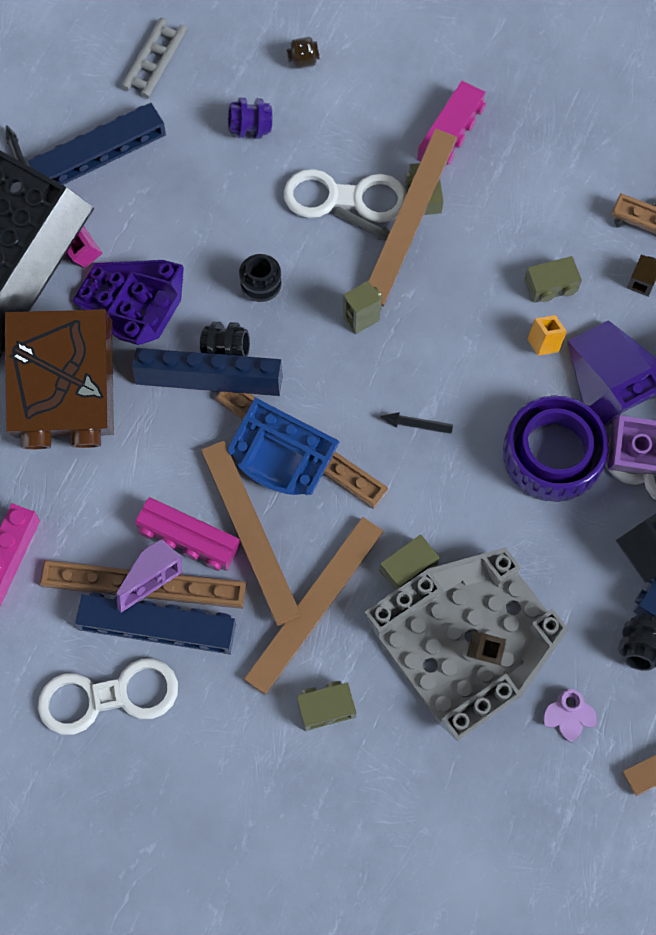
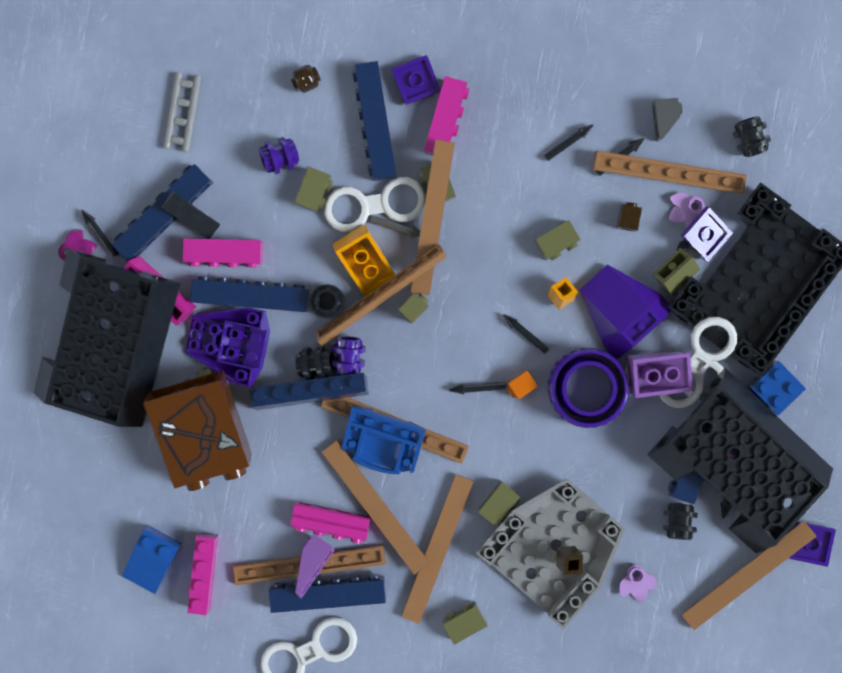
camera: 10 degrees left, 20 degrees up
(129, 152) = (191, 215): none -> black tile
(153, 202) = (222, 251): none -> dark pink brick
(199, 263) = (249, 295): none -> dark blue brick
(268, 339) = (348, 355): none -> dark purple piece
(278, 163) = (313, 189): none -> olive brick
(317, 249) = (363, 259): none -> light orange slope
(325, 284) = (380, 294): none -> medium nougat tile
(369, 113) = (375, 121): none -> dark blue brick
(427, 83) = (416, 80): none -> dark purple plate
(472, 429) = (521, 385): none -> orange brick
(478, 359) = (512, 322): none -> black piece
(607, 178) = (582, 132): none -> black piece

